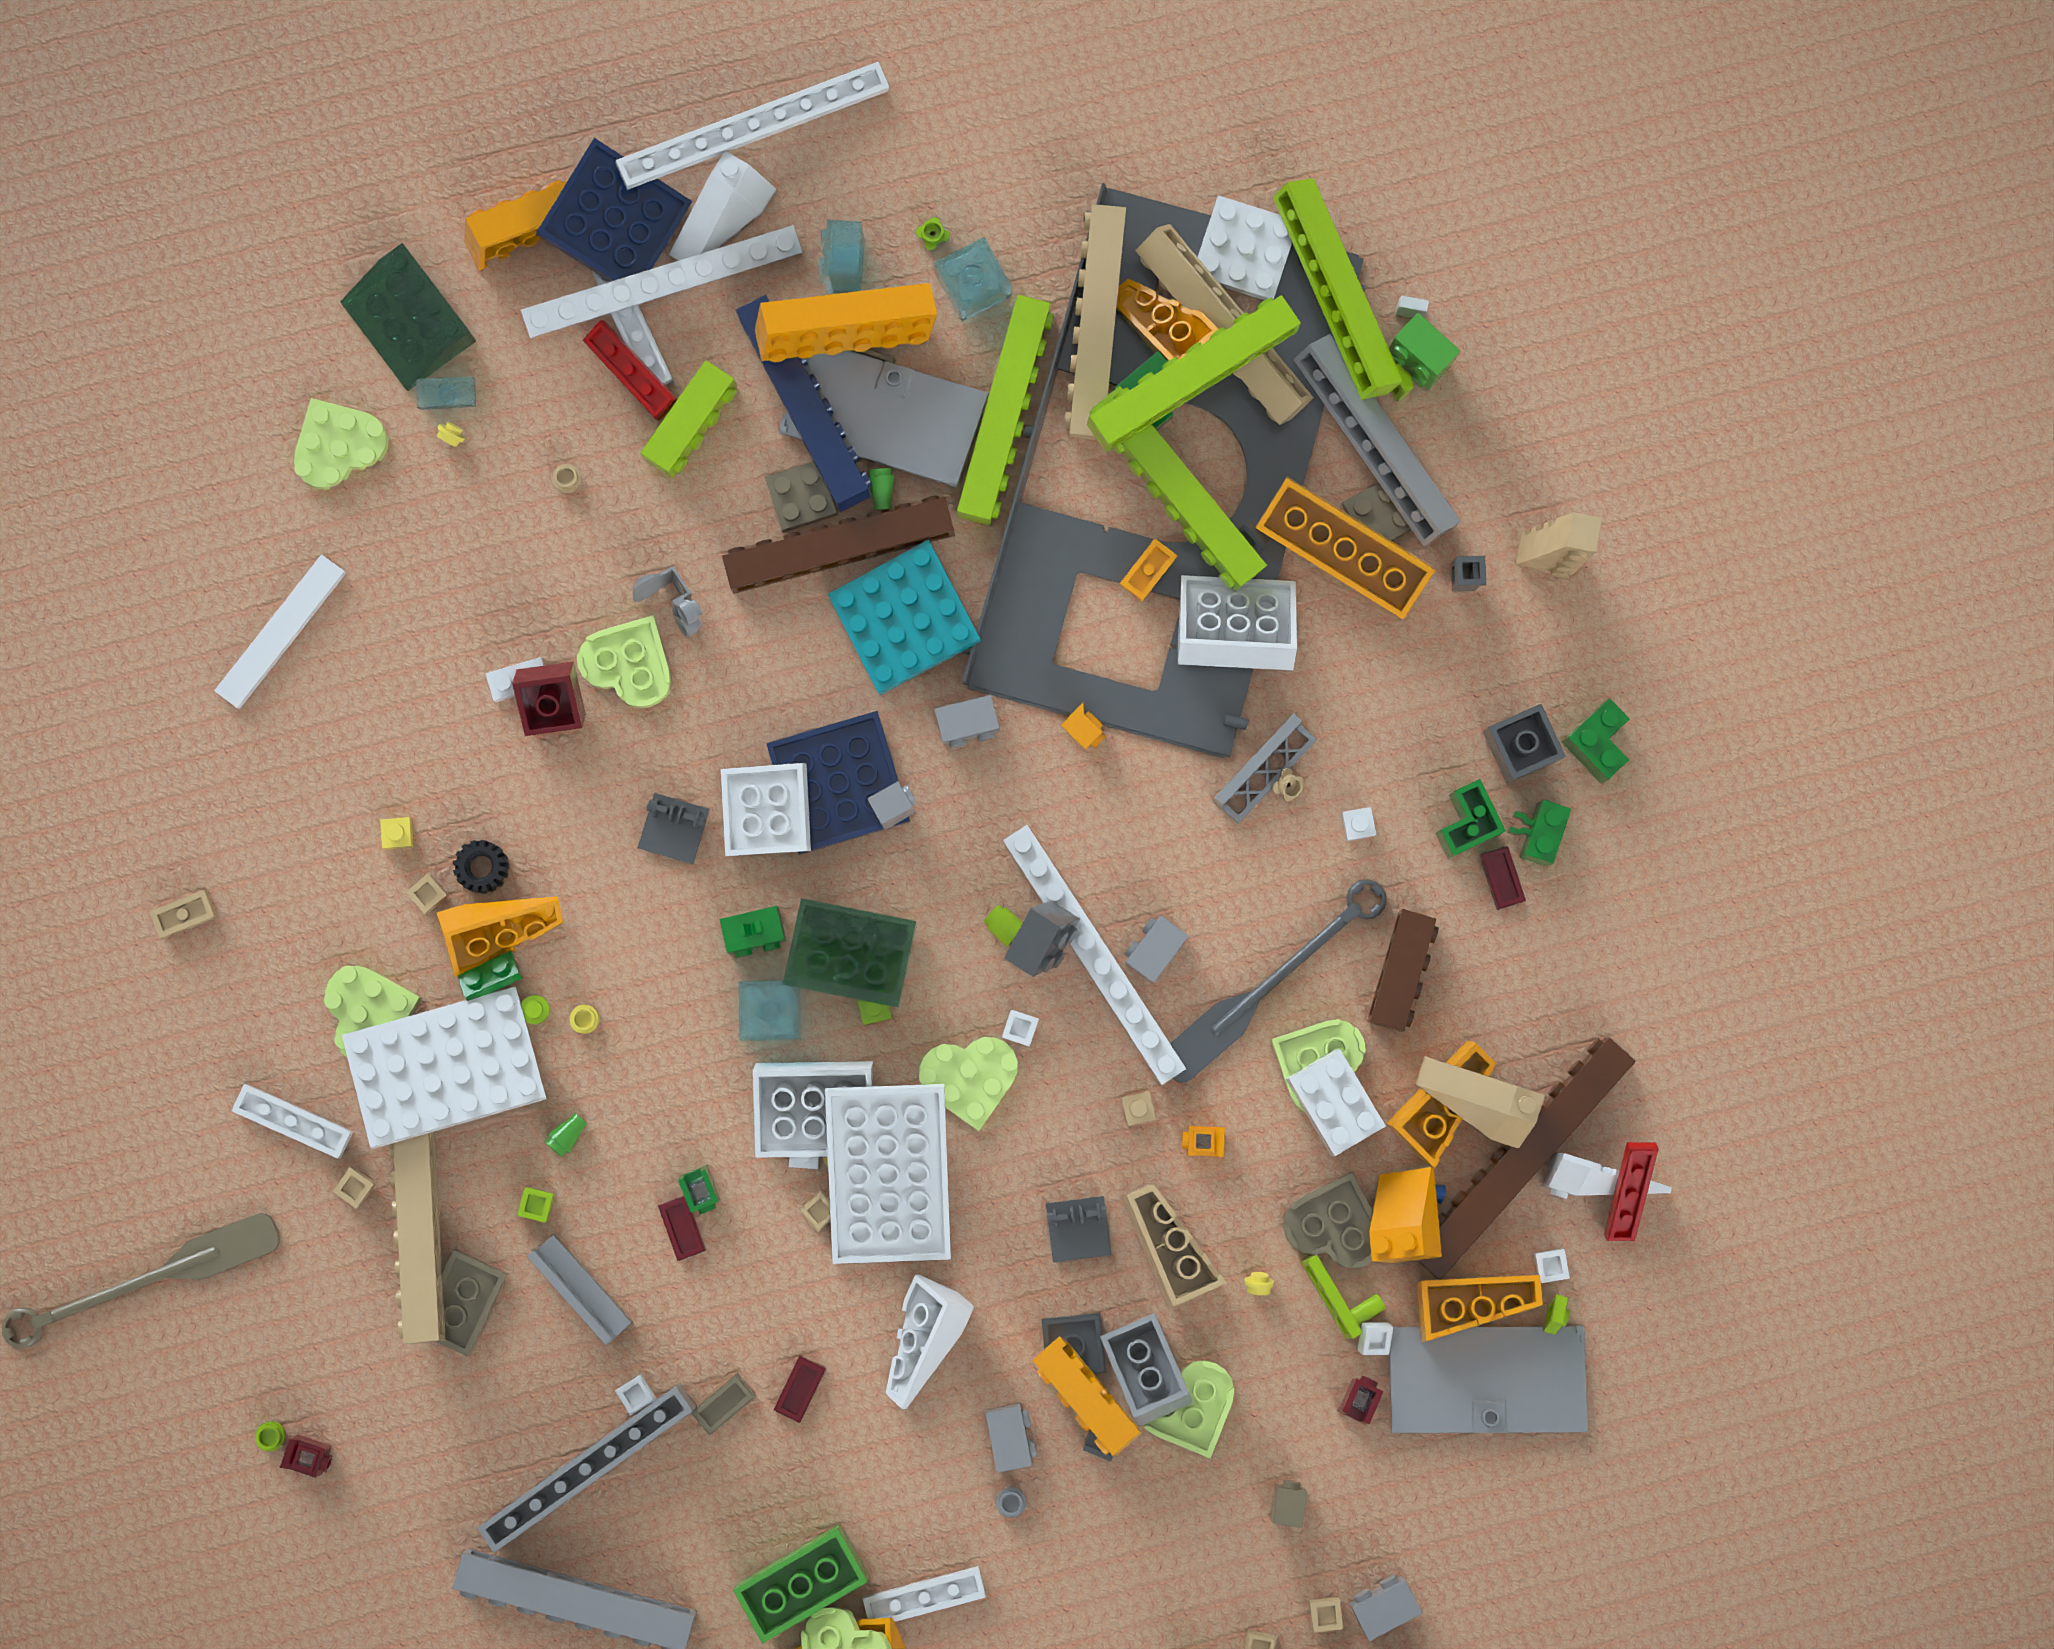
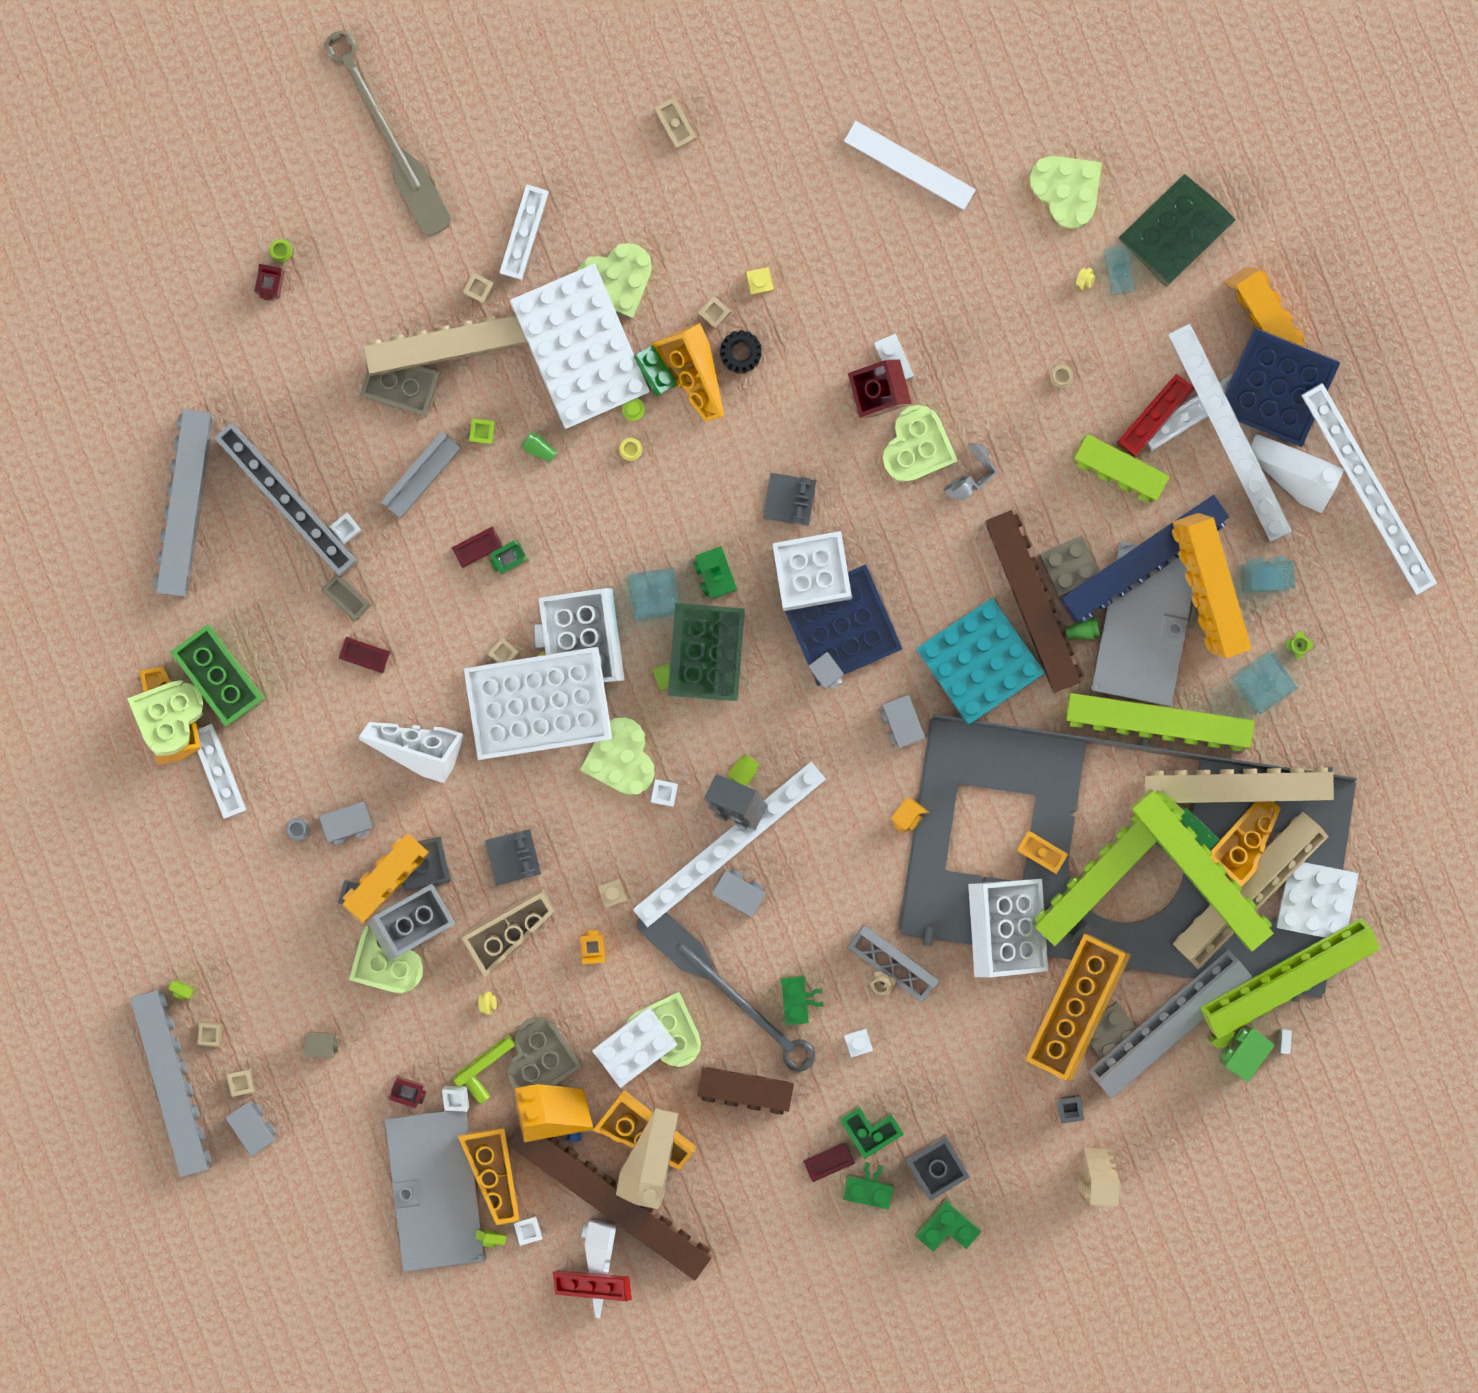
camera: 85 degrees right, 5 degrees up
(1299, 894) = (796, 1001): none -> green brick

